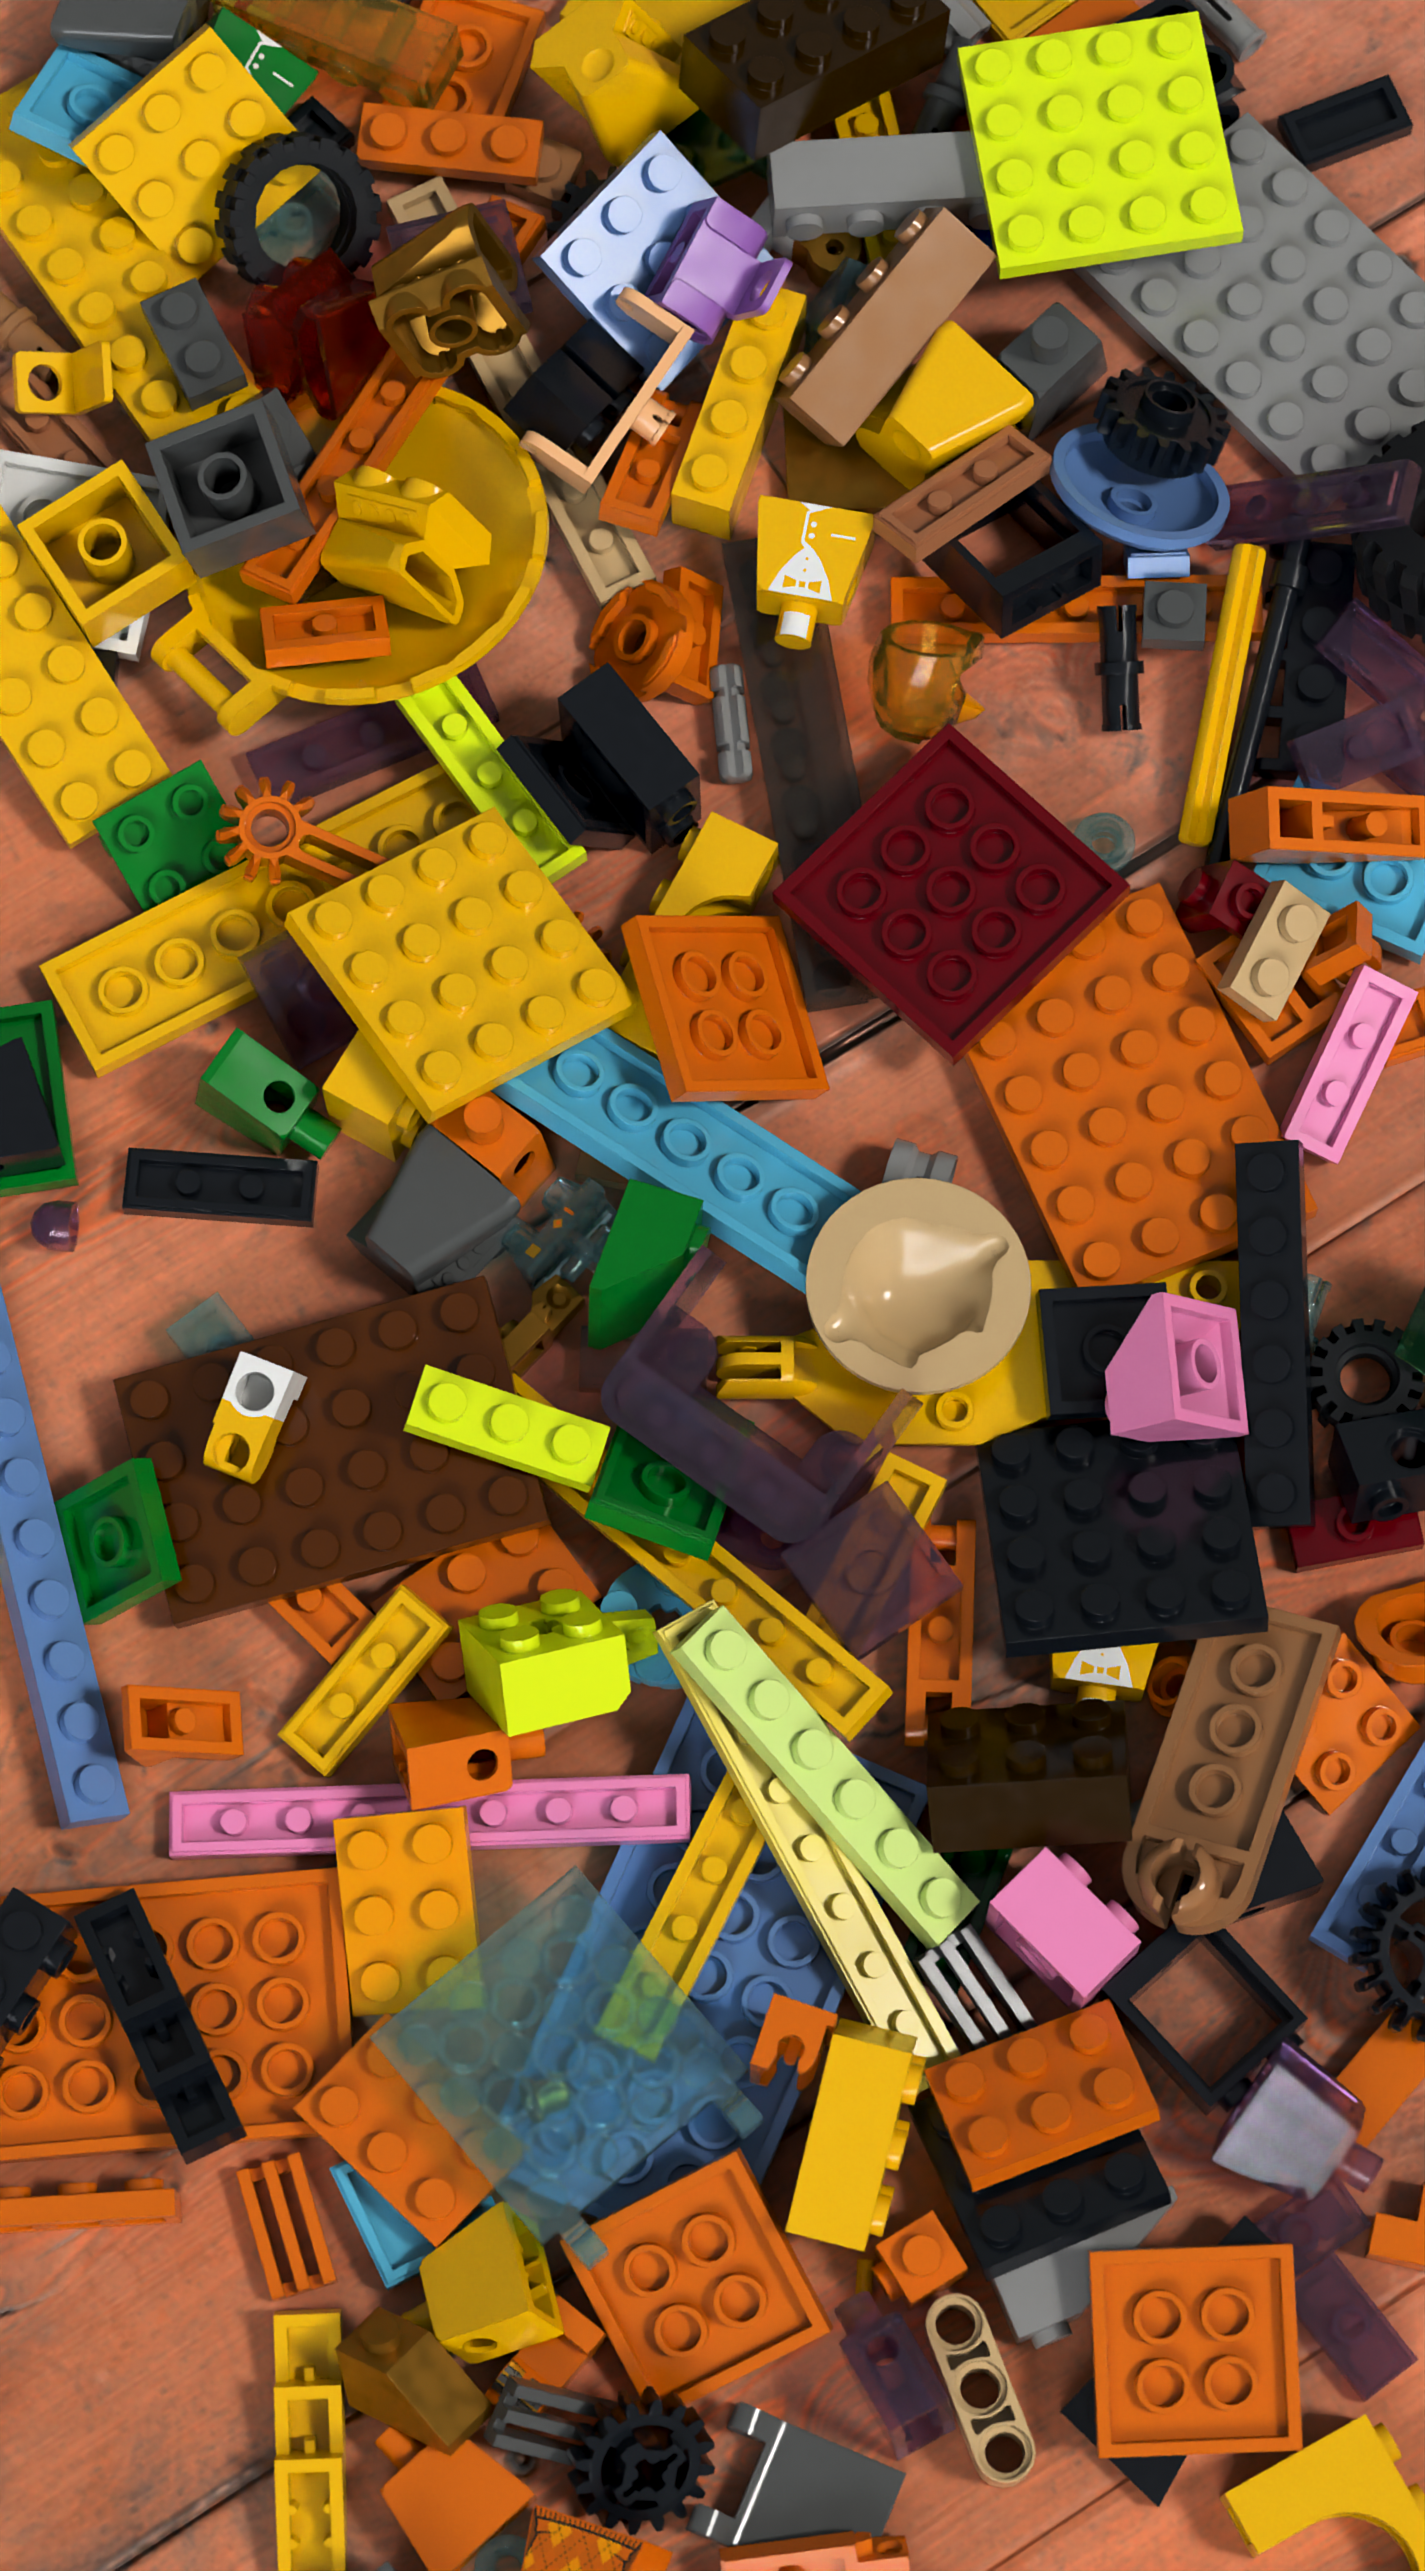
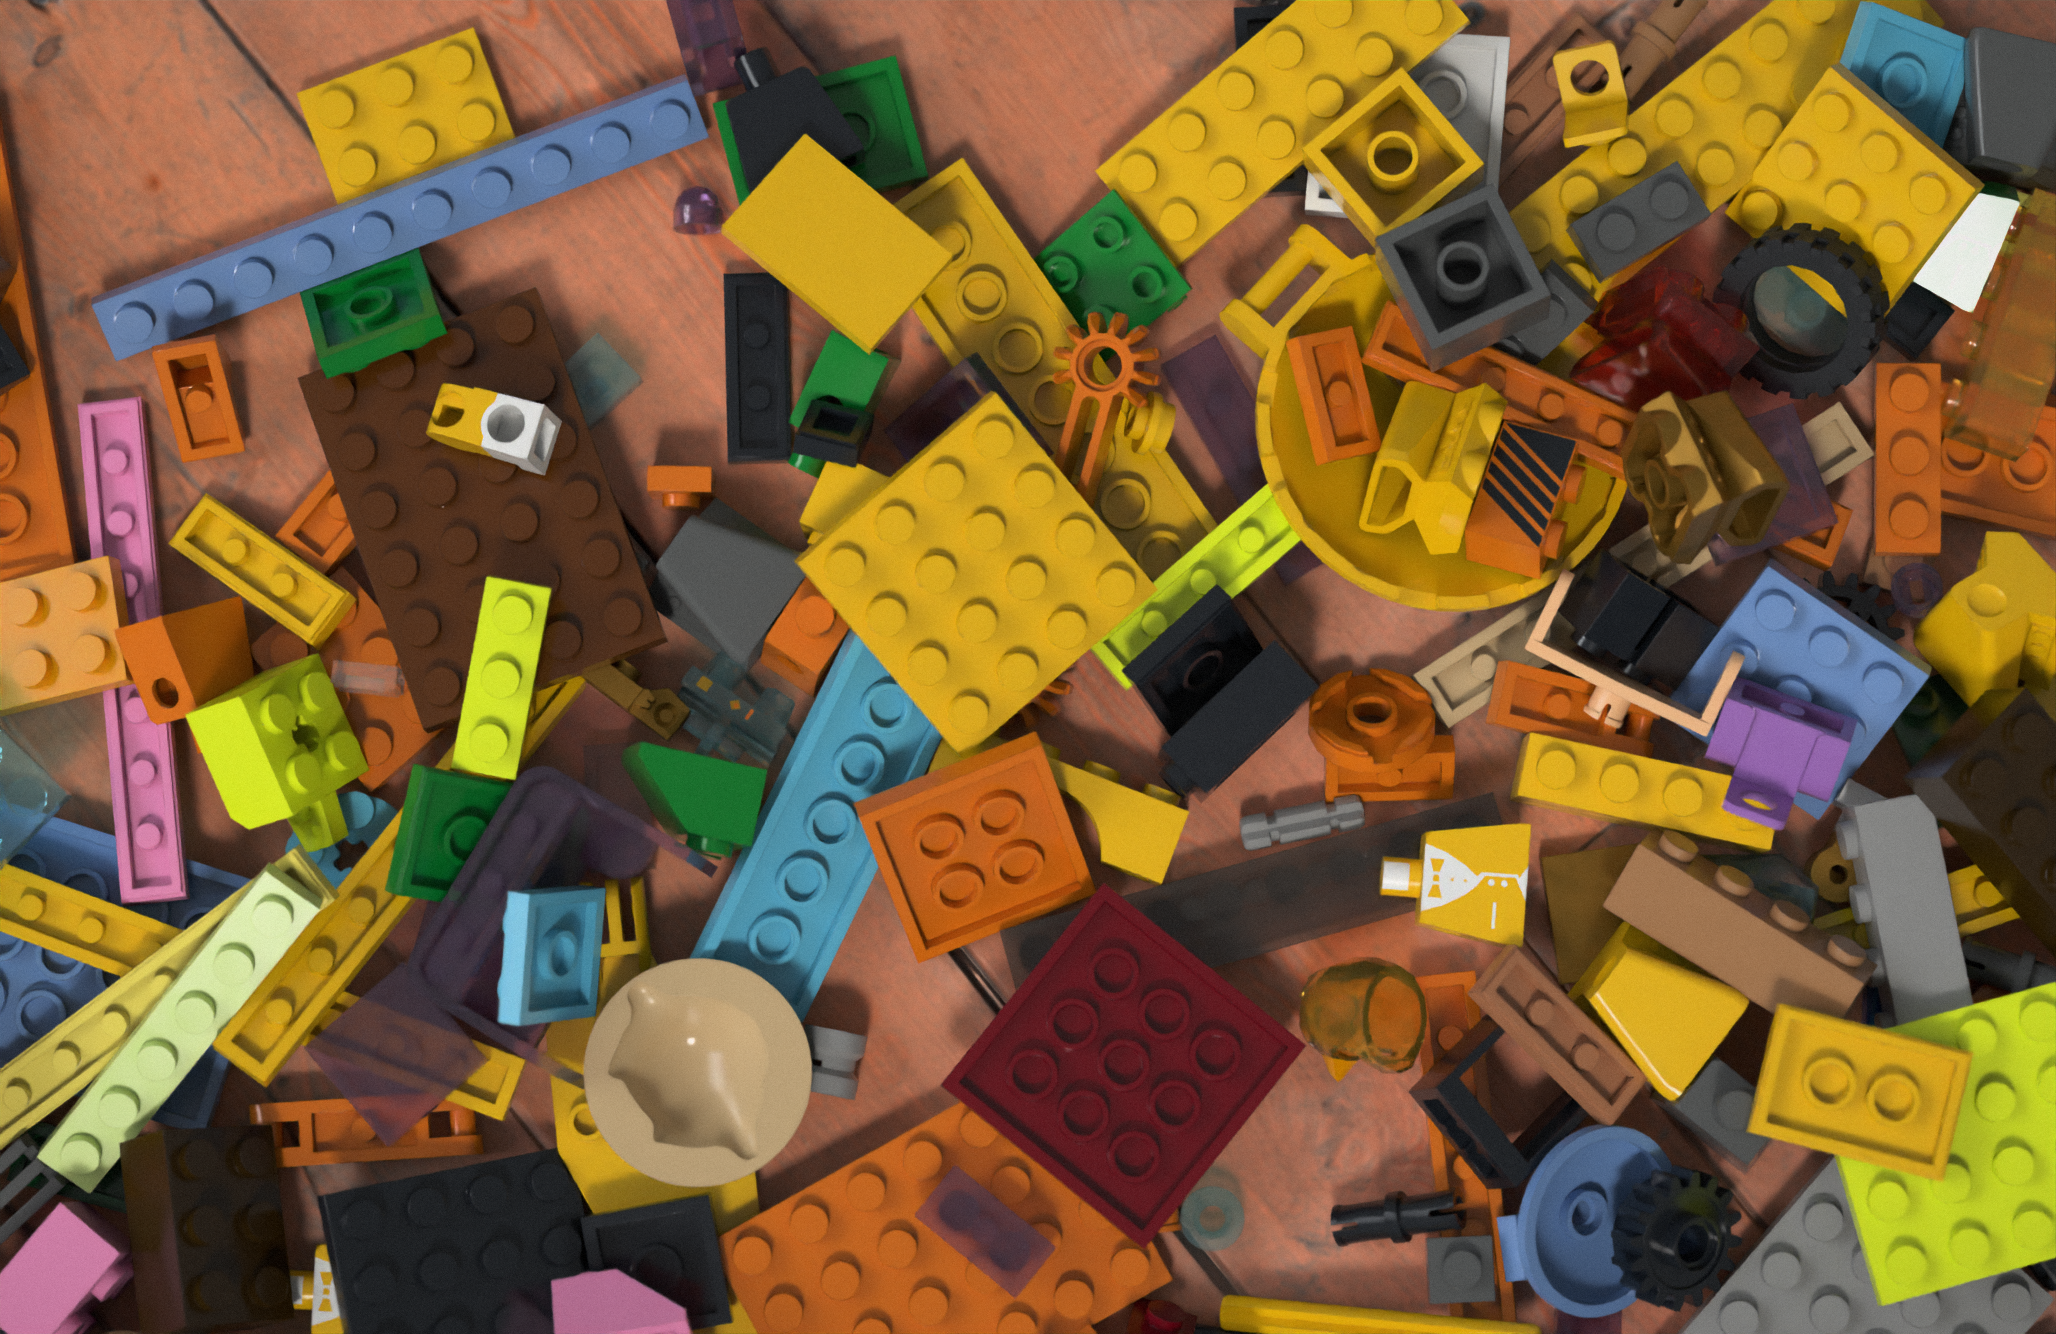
camera: 80 degrees right, 10 degrees up
(115, 1063) = (837, 243): none -> yellow tile
(304, 1084) = (833, 433): none -> black tile
(331, 1264) = (681, 486): none -> orange plate
(334, 807) = (1151, 425): none -> yellow plate
(469, 467) = (1524, 499): none -> orange brick
(490, 1571) = (368, 678): none -> clear tile
(575, 136) = (1931, 585): none -> hinge
(771, 1402) = (551, 954): none -> medium azure plate
(1044, 222) = (1859, 1092): none -> yellow tile
(1098, 1035) = (984, 1231): none -> plate

